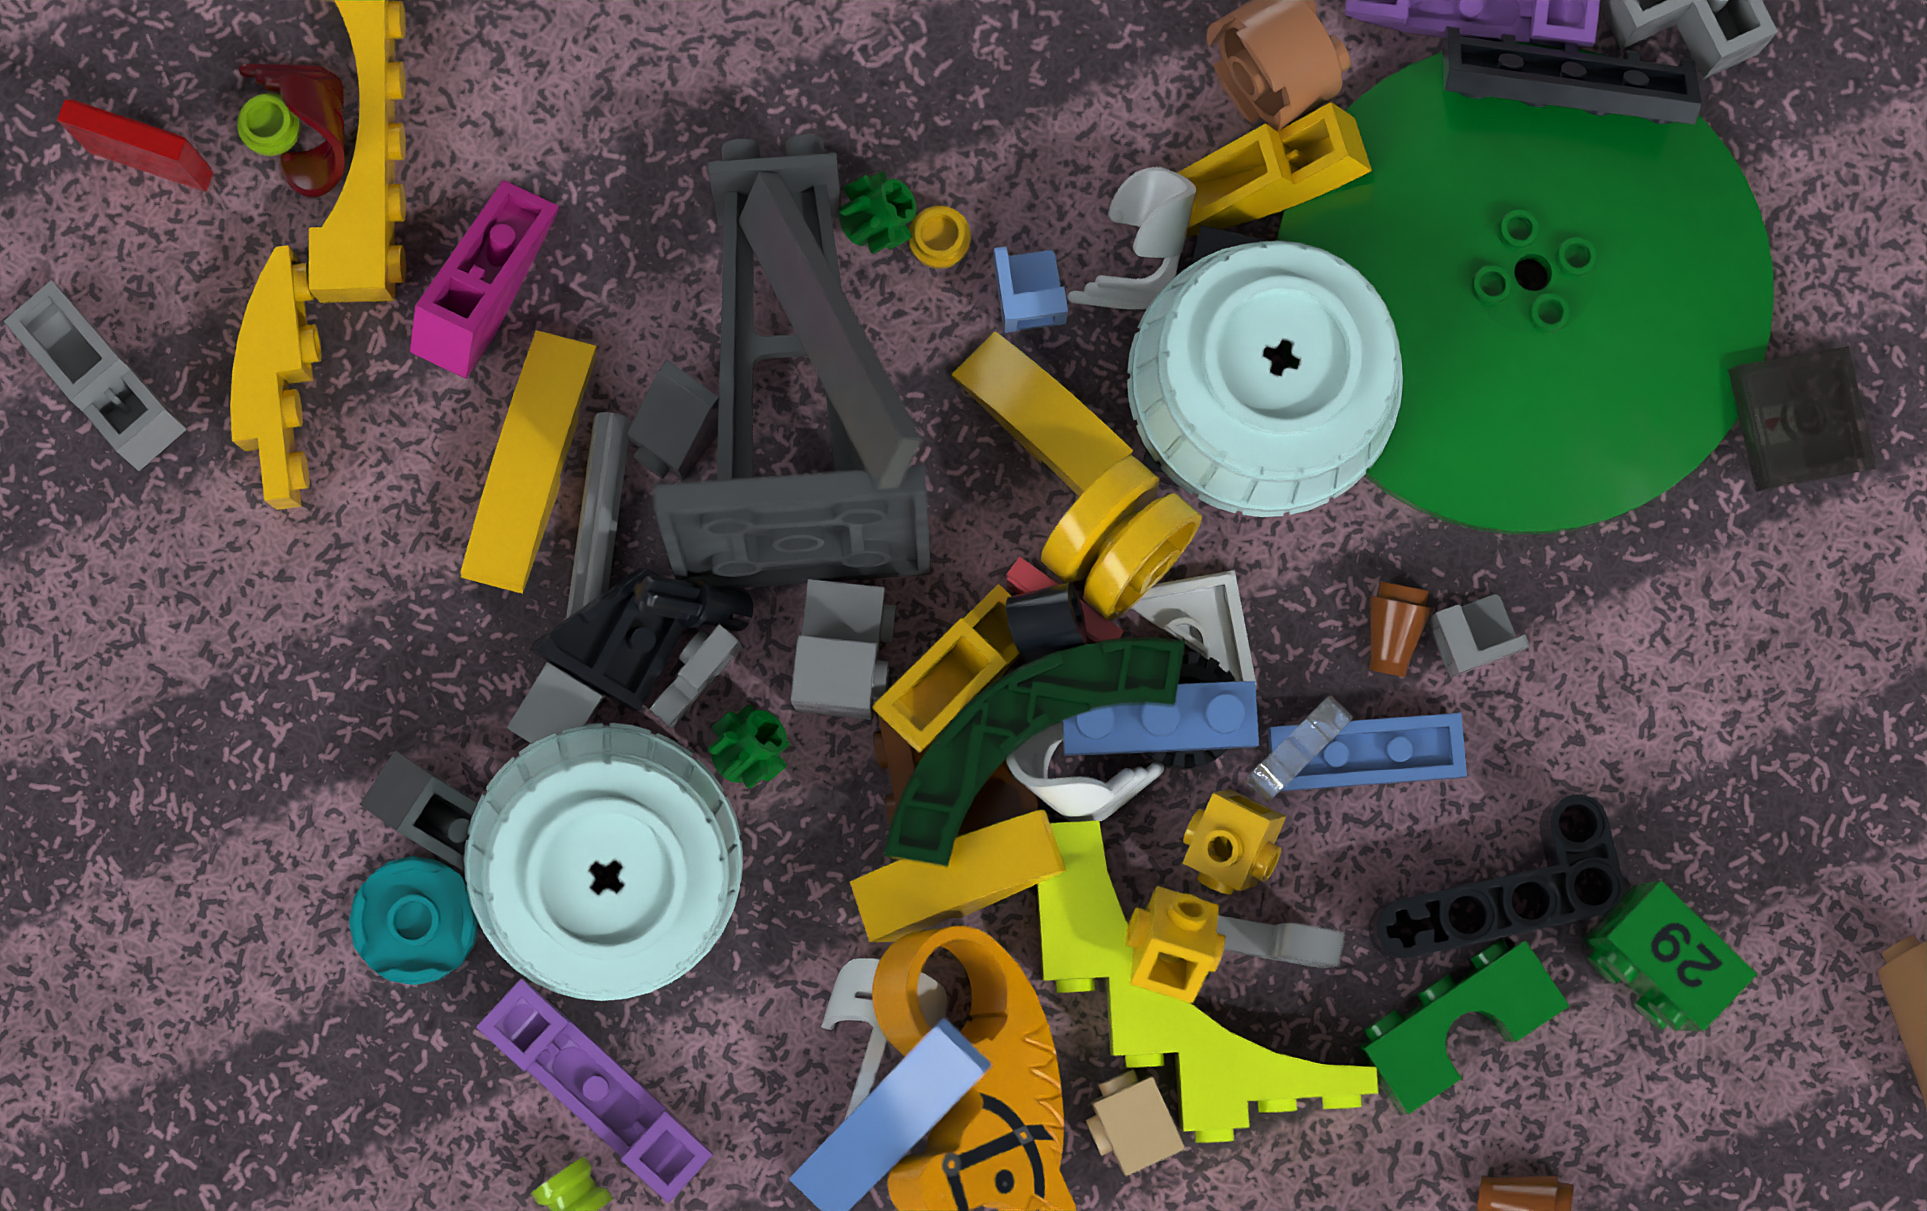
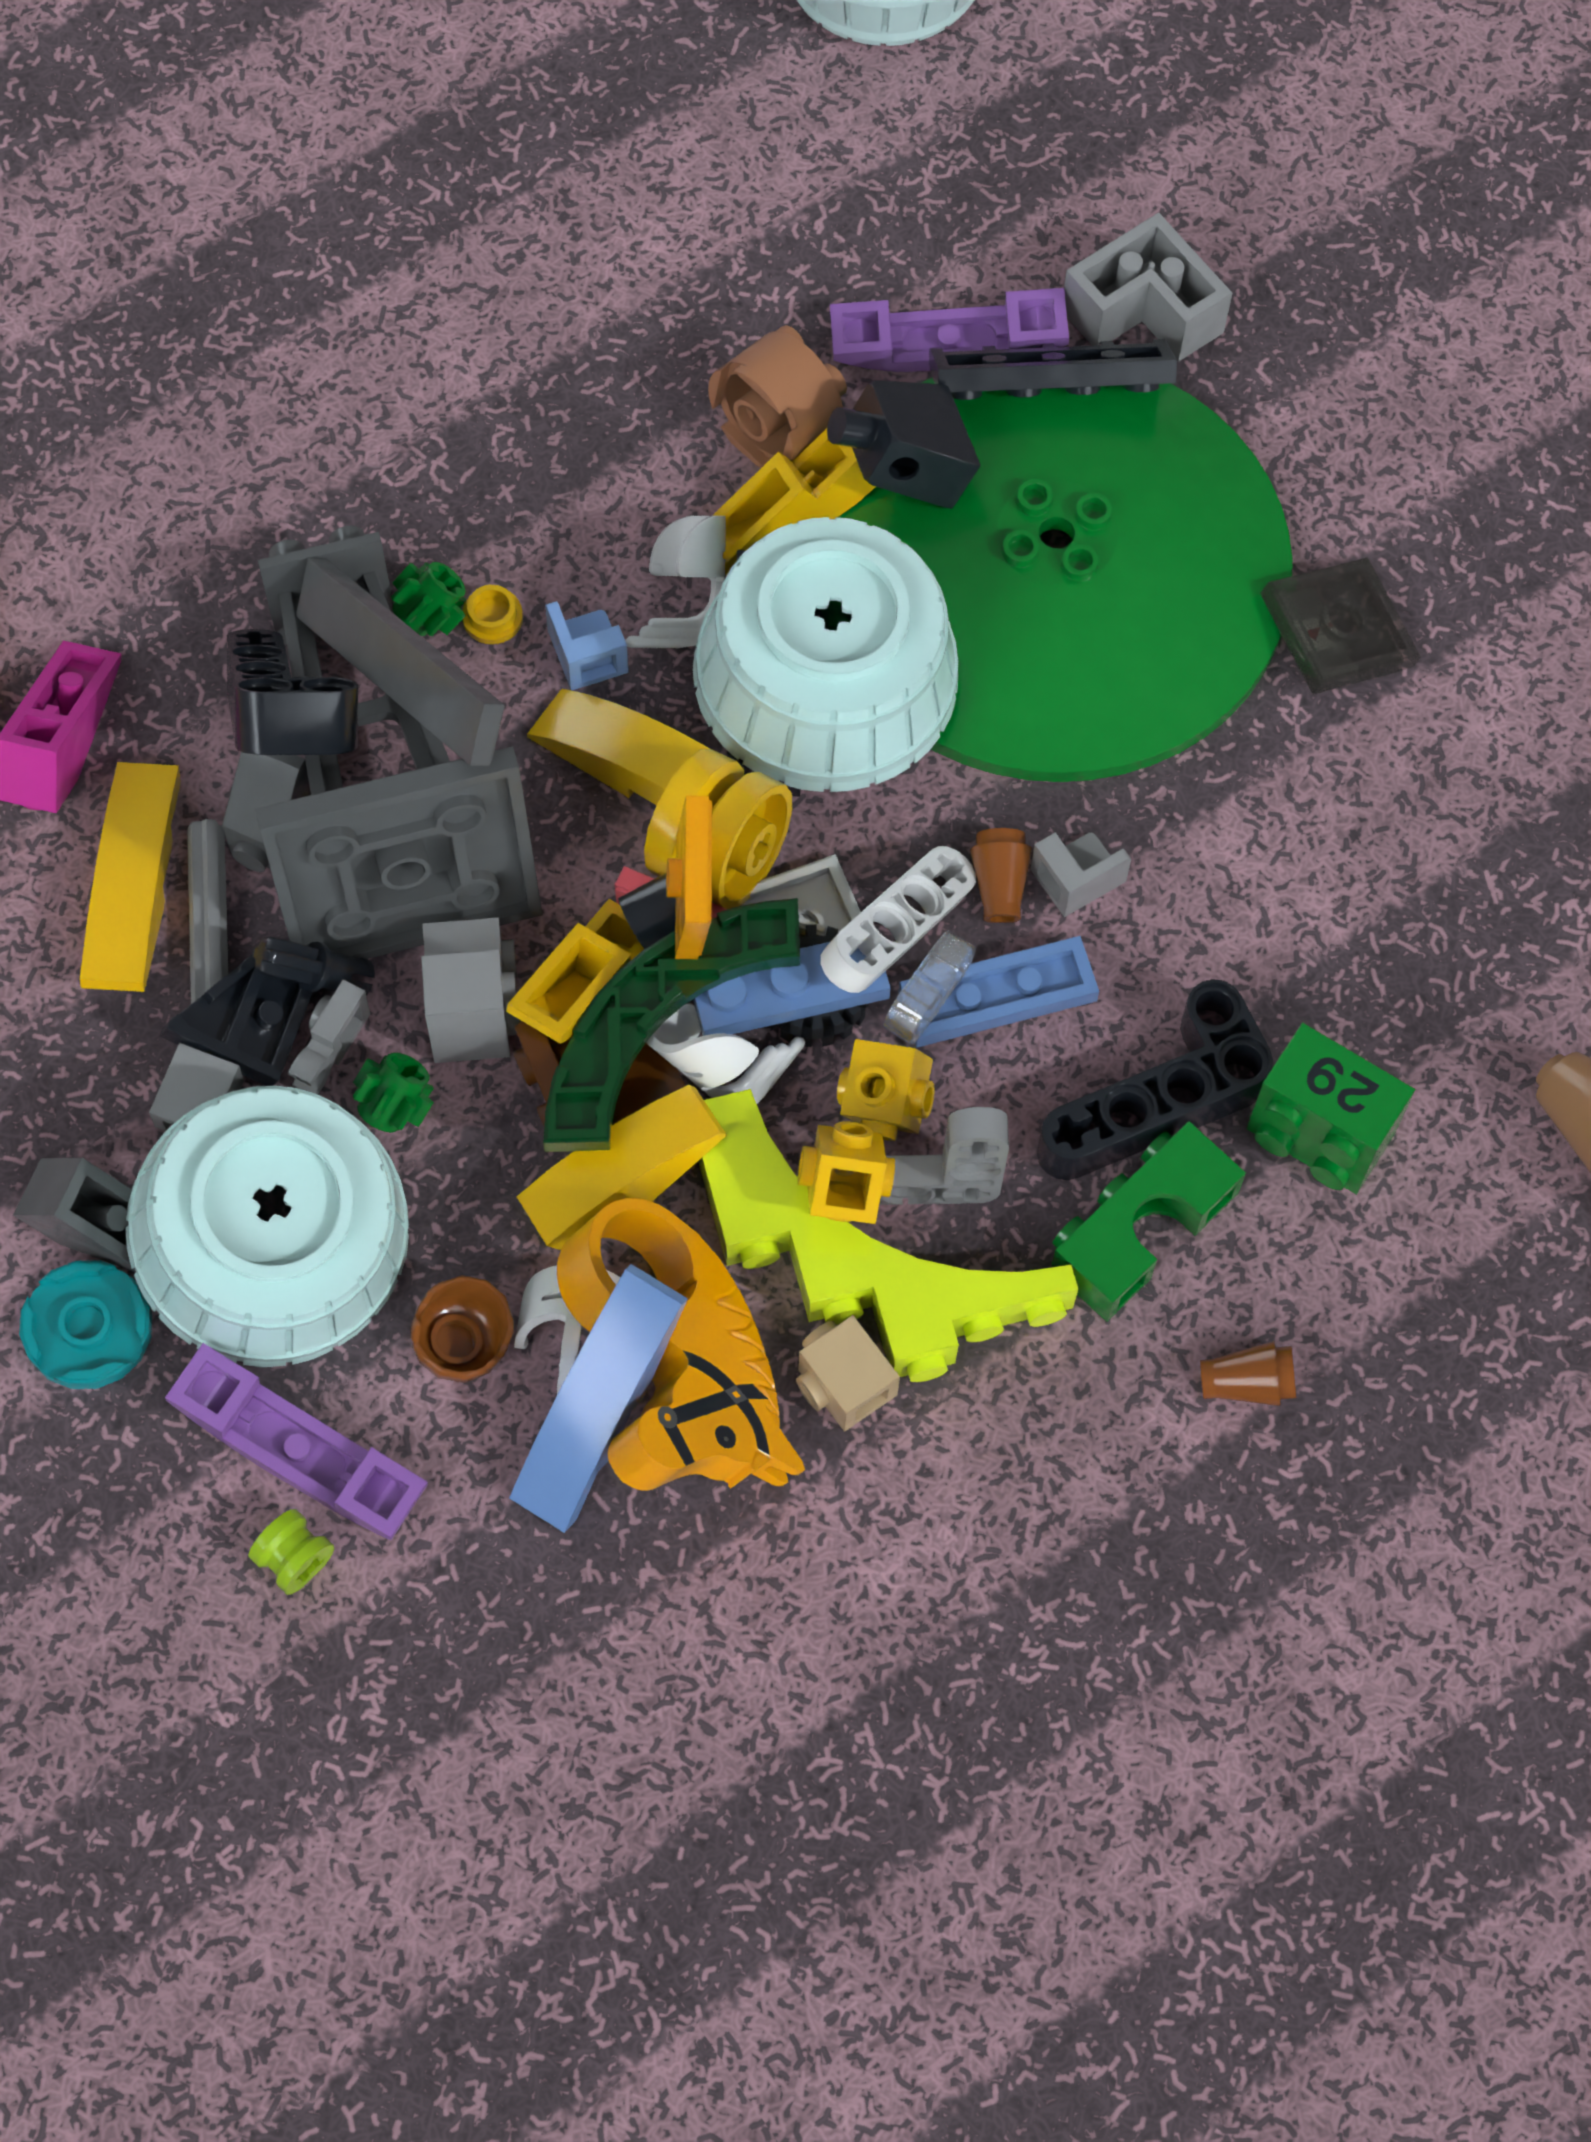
camera: 10 degrees left, 15 degrees down
(693, 350) = (283, 712): none -> black beam
(755, 1006) = (450, 1319): none -> dark orange hair
(1080, 626) = (691, 877): none -> light orange plate
(1288, 678) = (899, 918): none -> white beam
(1402, 147) = (908, 440): none -> black torso

